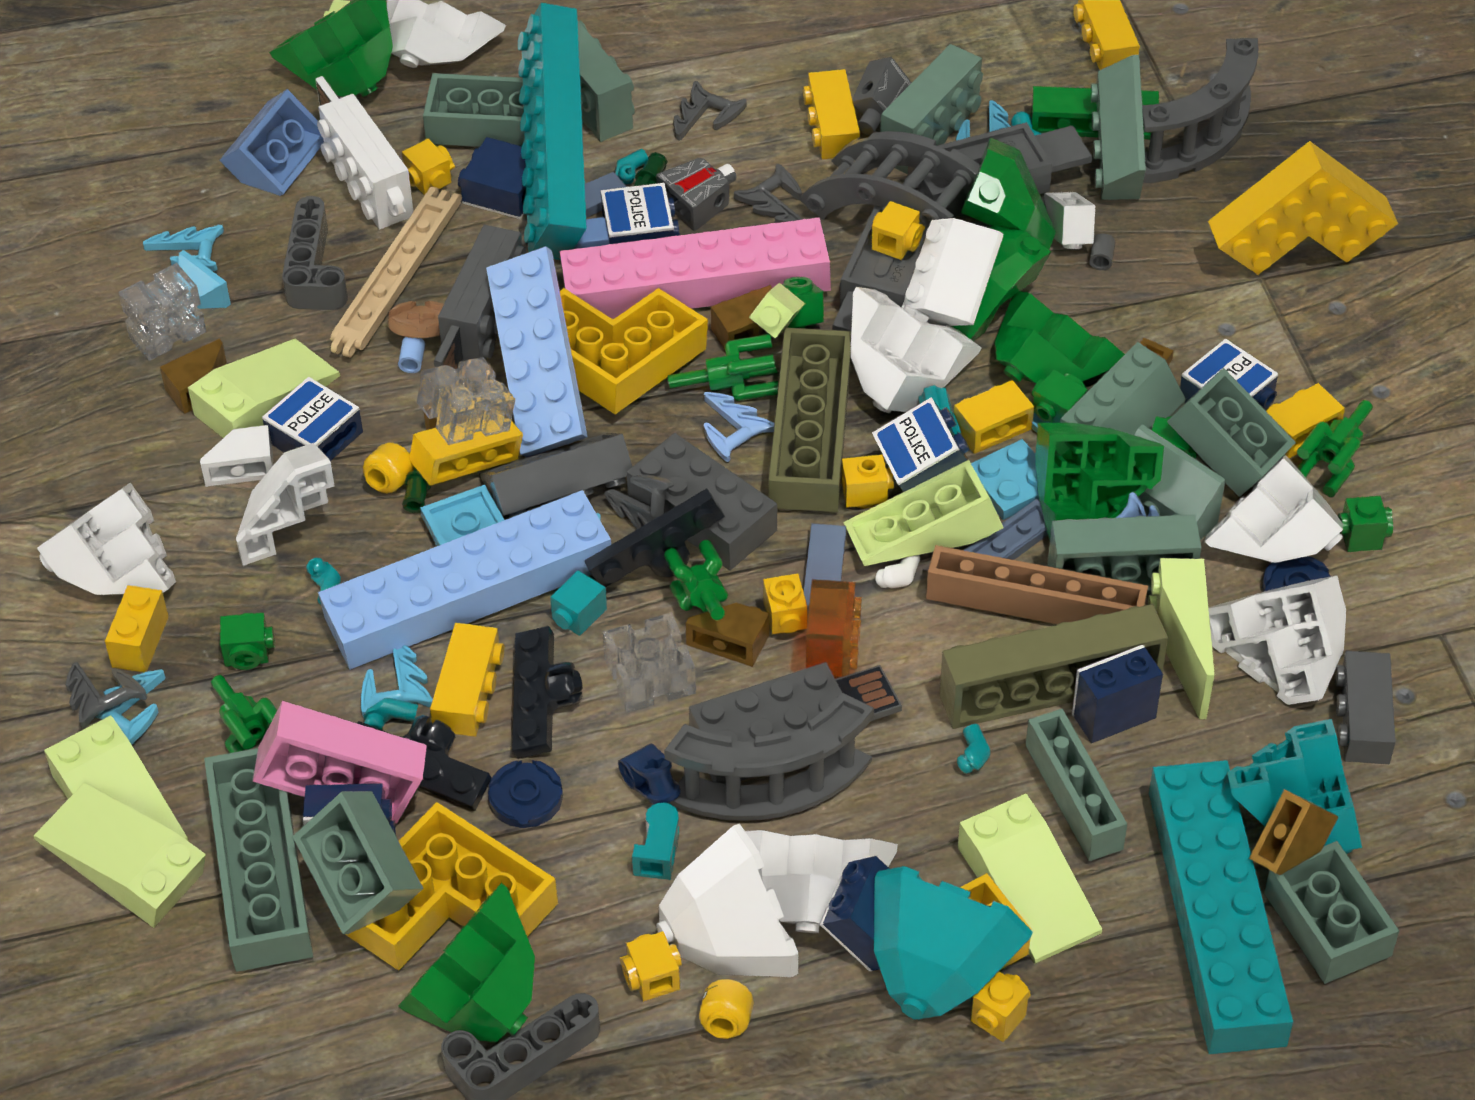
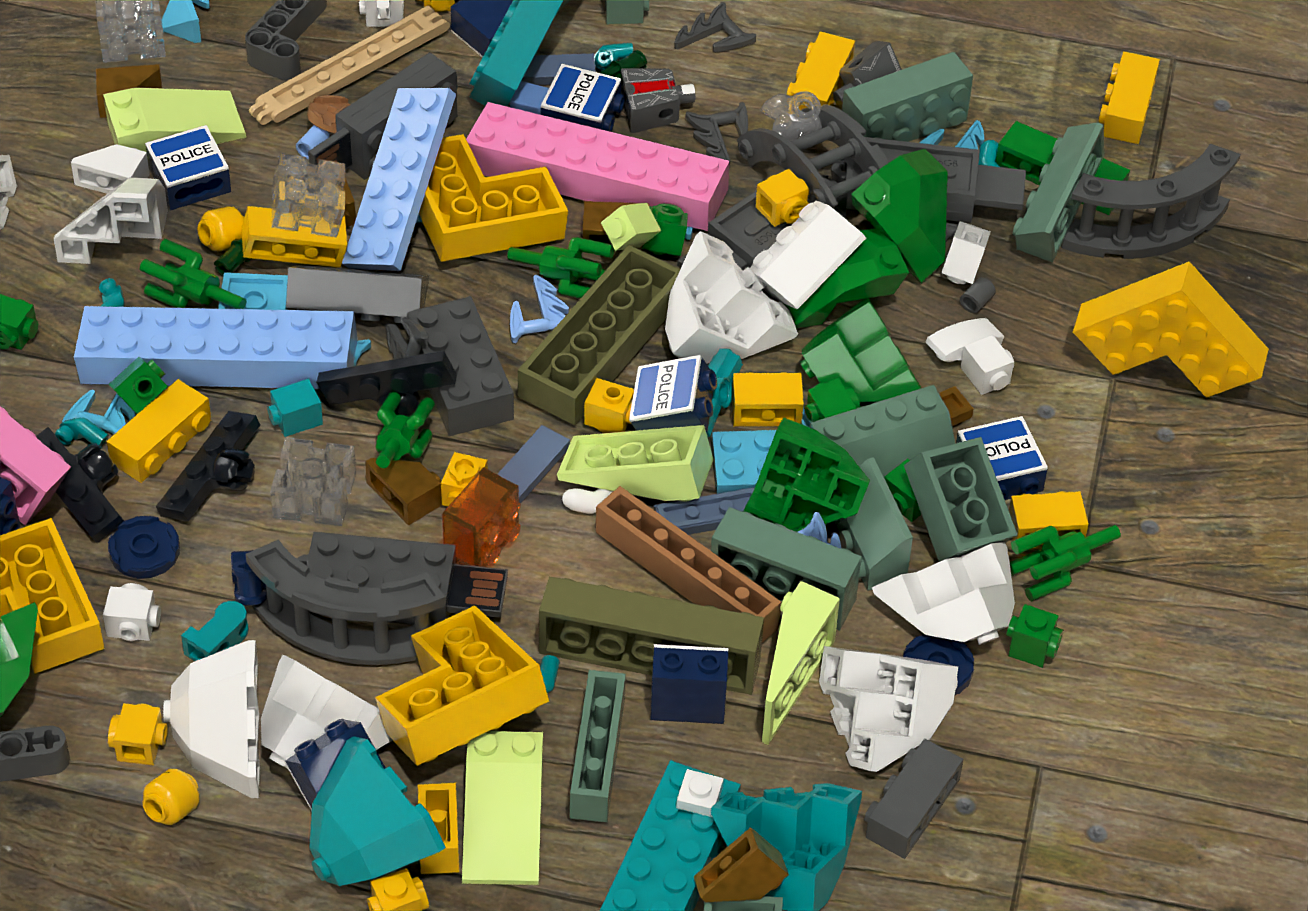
camera: 25 degrees right, 0 degrees up
(395, 529) = (187, 281): none -> green plant
(423, 643) = (139, 384): none -> green brick
(564, 856) = (131, 612): none -> white brick
(853, 156) = (788, 117): none -> clear plate
(936, 783) = (468, 686): none -> yellow brick
(1120, 294) = (950, 341): none -> white slope
(1156, 308) = (987, 364): none -> white brick
(1205, 782) = (699, 792): none -> white plate

